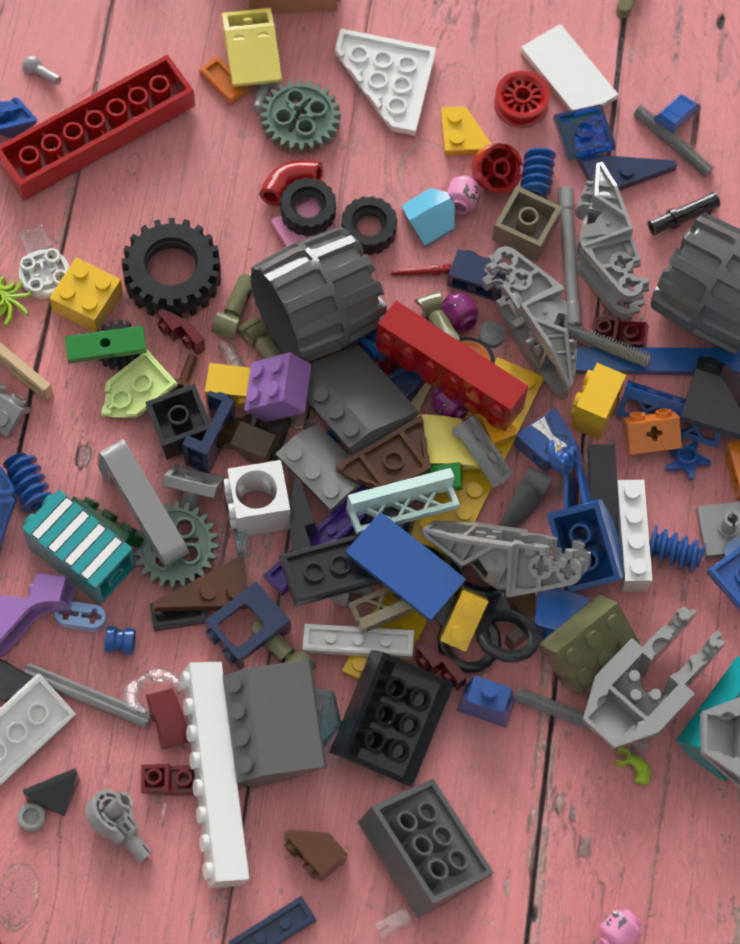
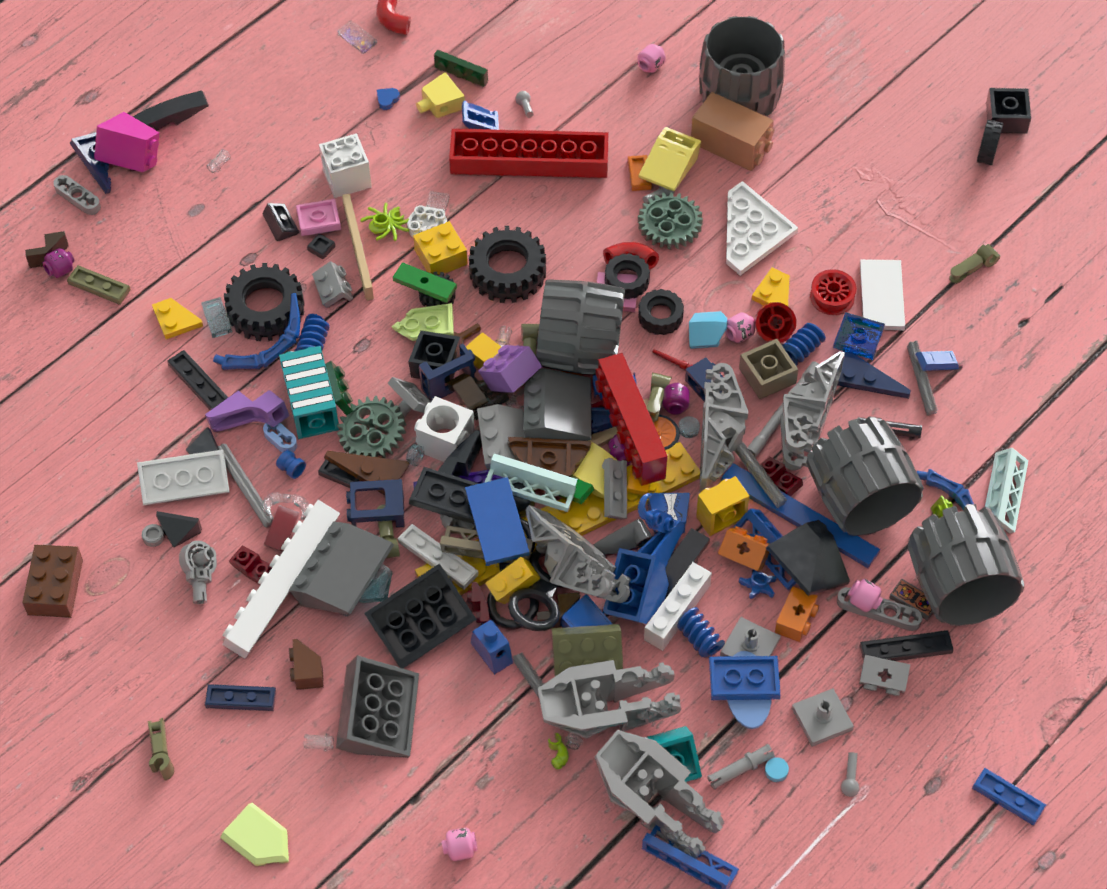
camera: 40 degrees right, 10 degrees down
(121, 466) = (368, 364): light grey beam -> none
(177, 328) = (482, 305): dark red slope -> none
(227, 322) = (515, 317): olive piece -> none

